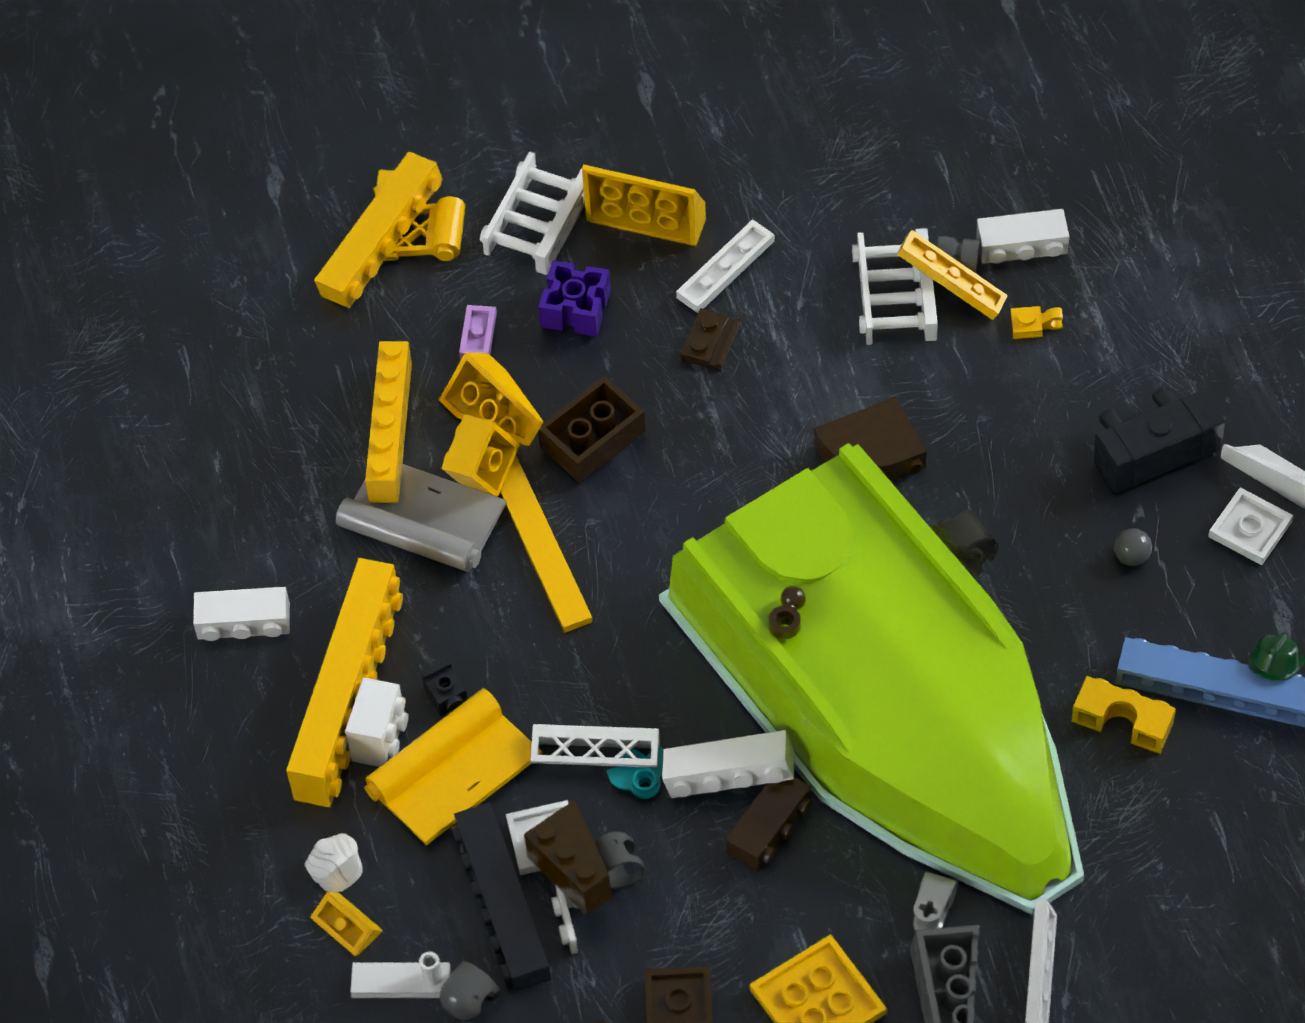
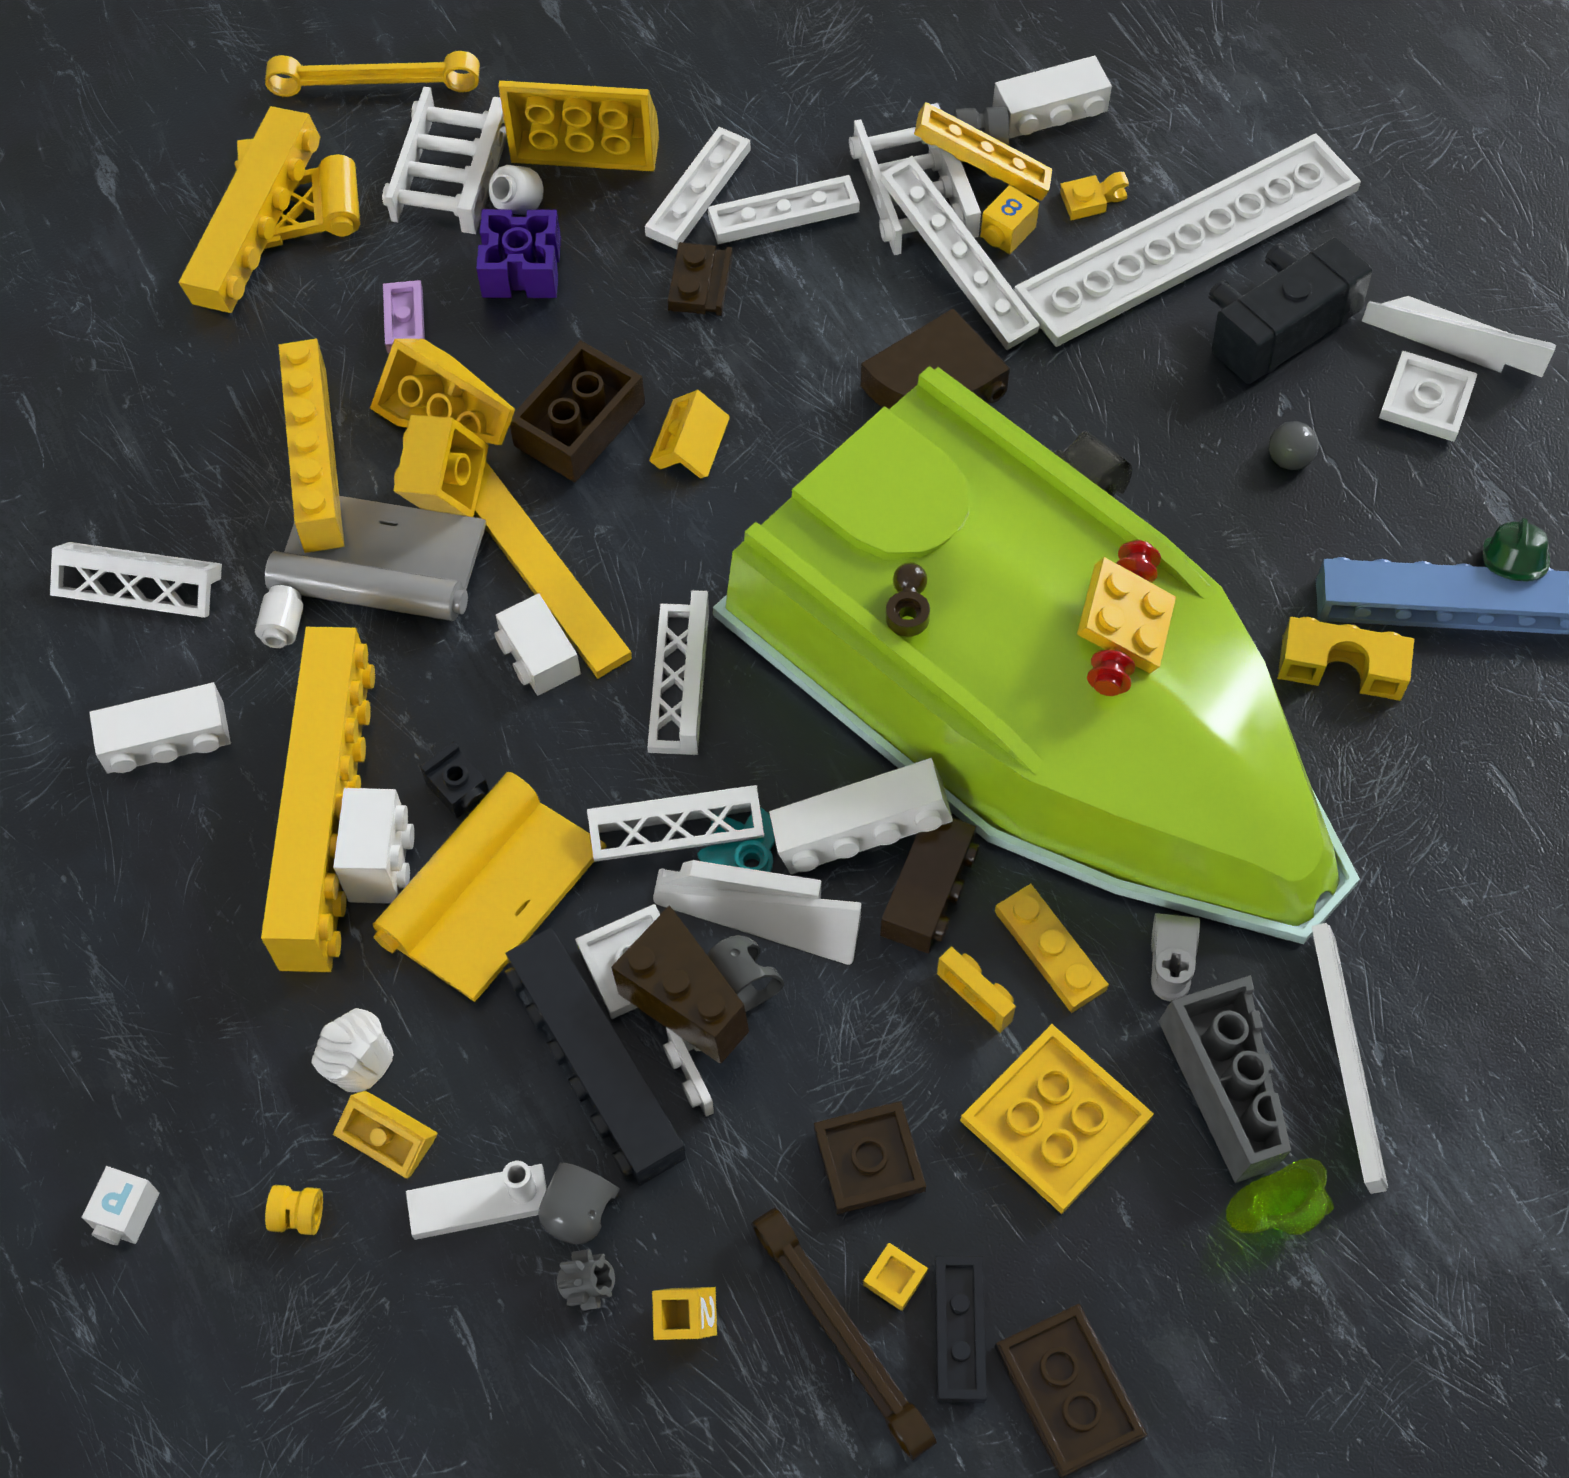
camera: 15 degrees left, 5 degrees up
(157, 936) = (120, 1206): none -> white brick
(246, 490) = (136, 564): none -> white fence
(274, 960) = (294, 1209): none -> yellow wheel
(341, 546) = (279, 616): none -> white brick
(524, 600) = (537, 644): none -> white brick
(559, 141) = (372, 73): none -> yellow piece
(583, 246) = (516, 189): none -> white head
(630, 644) = (692, 672): none -> white fence
(647, 816) = (764, 905): none -> white wedge
(674, 461) = (690, 434): none -> yellow panel
(778, 893) = (965, 977): none -> yellow plate
(787, 294) = (783, 209): none -> white plate
(846, 883) = (1051, 948): none -> yellow plate
(913, 353) = (959, 253): none -> white plate
(939, 651) = (1125, 617): none -> yellow plate
(961, 332) = (1009, 219): none -> yellow brick
(1099, 369) = (1186, 239): none -> white plate

